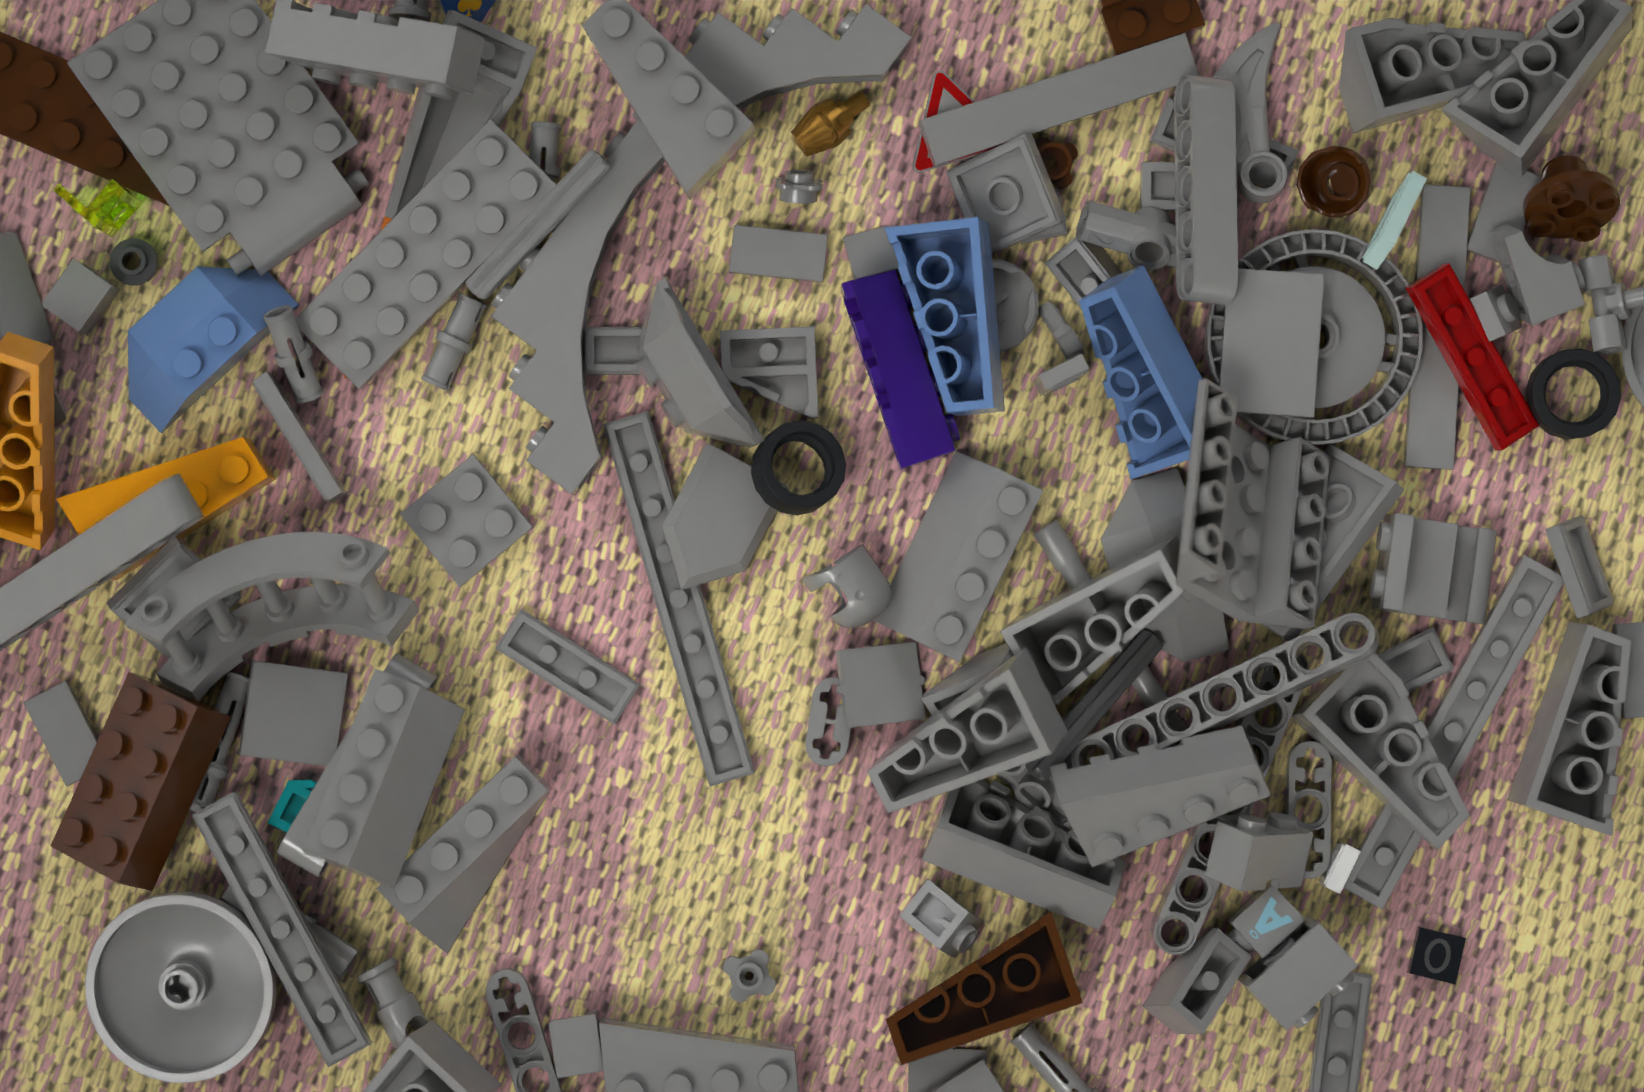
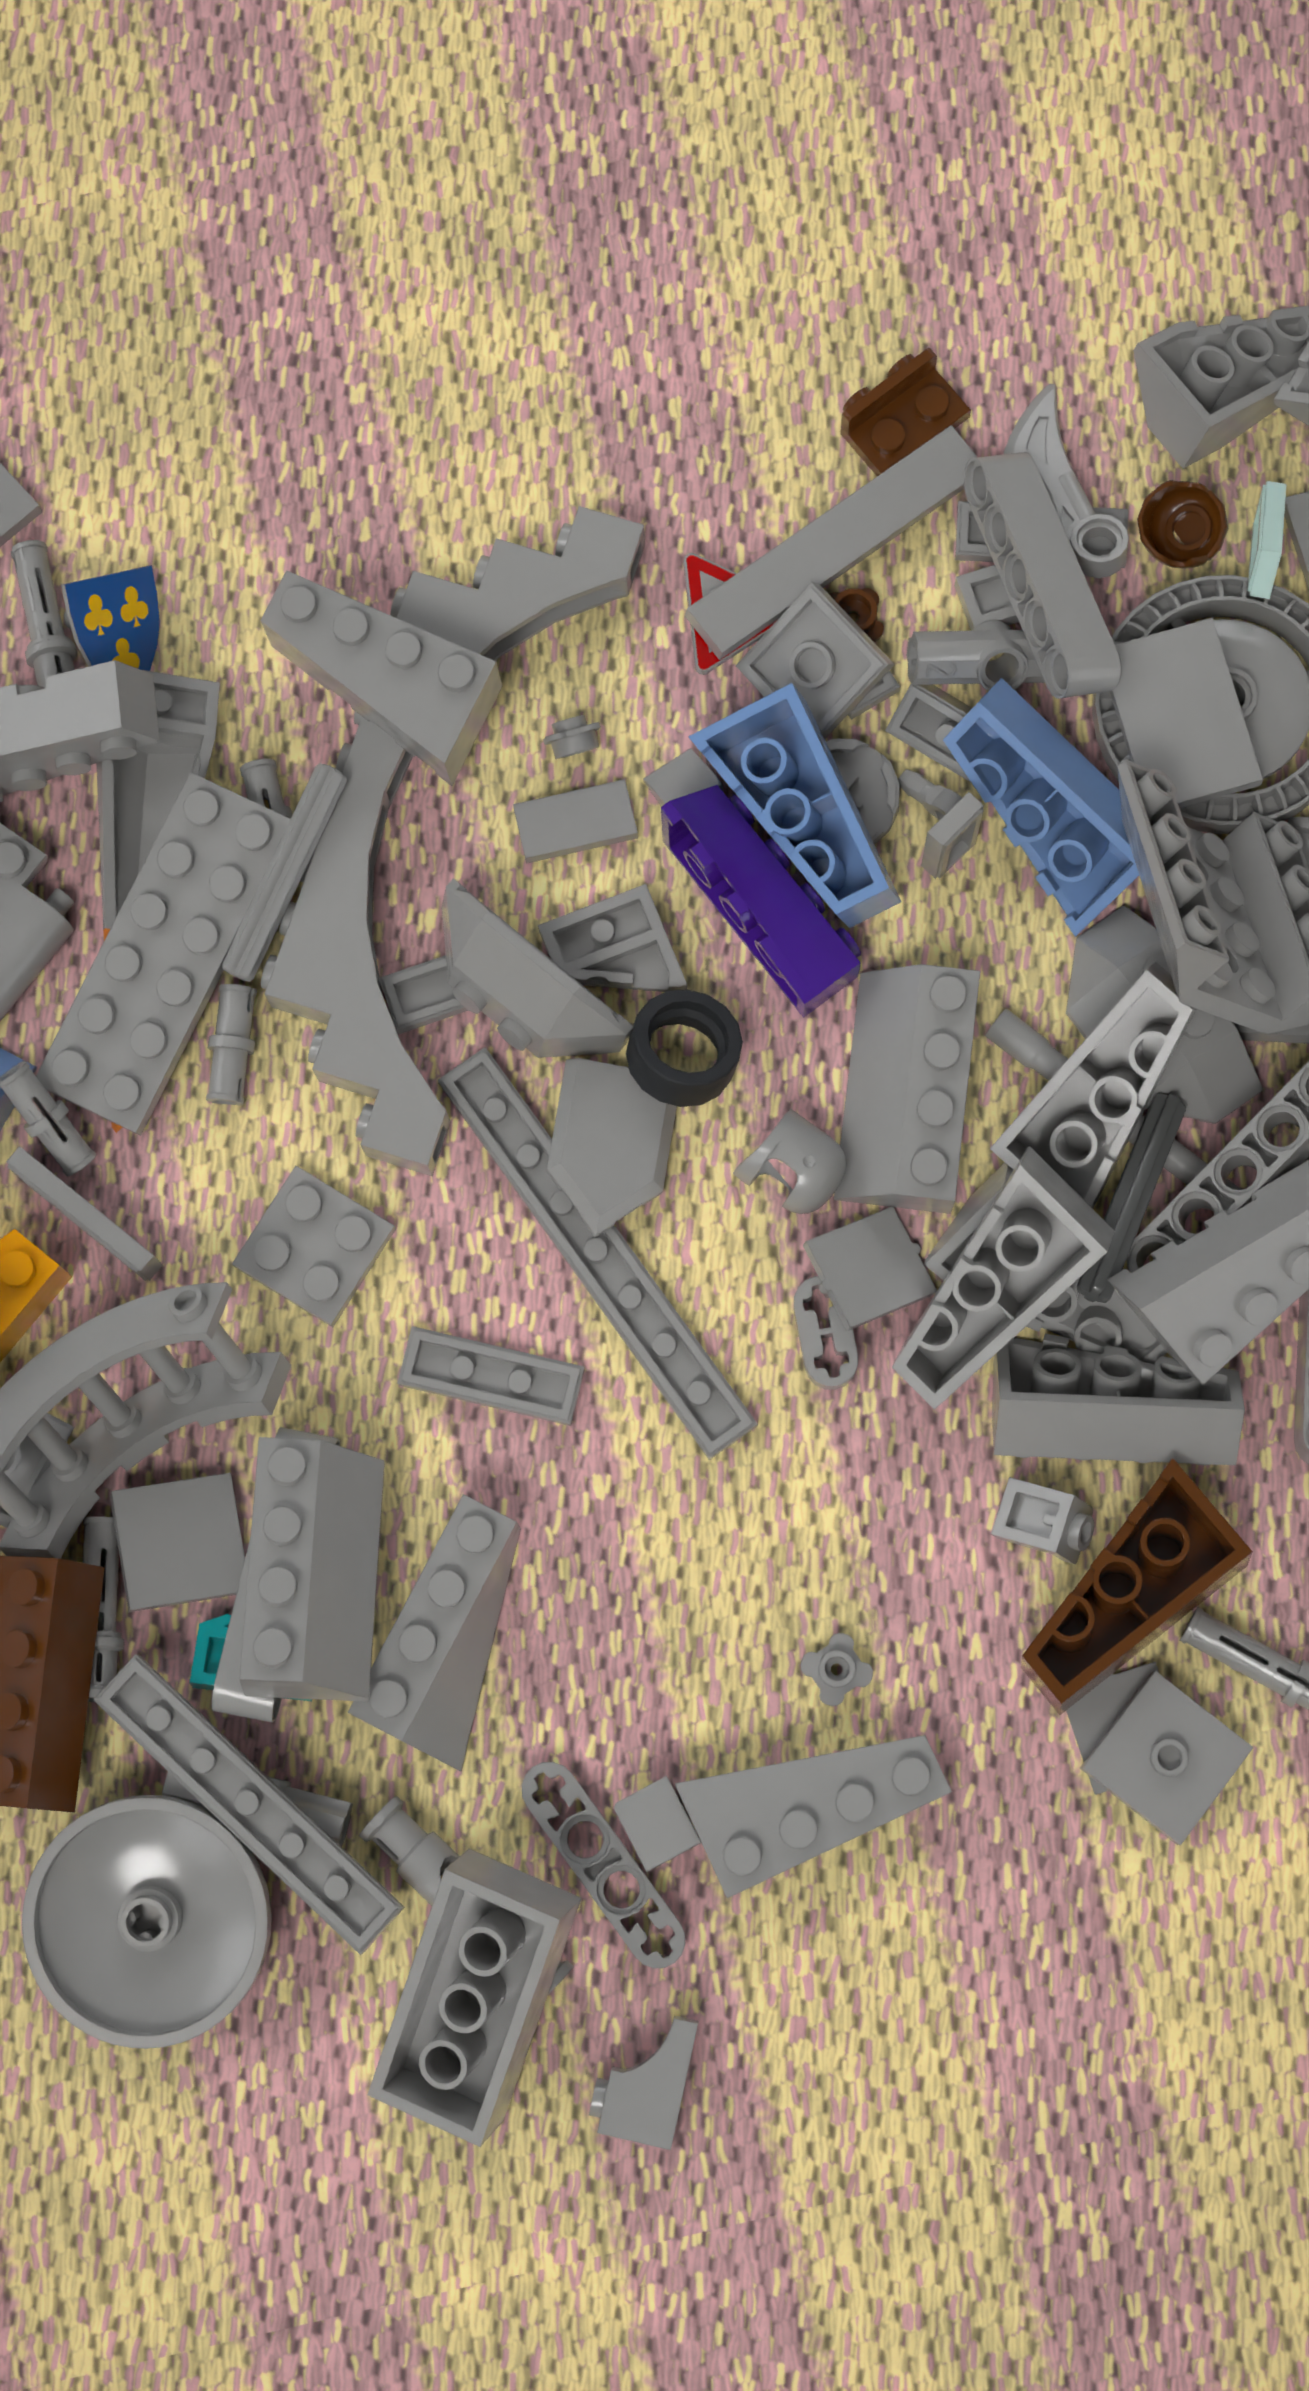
camera: 15 degrees left, 10 degrees down
(828, 123) = (581, 658): pearl gold piece -> none

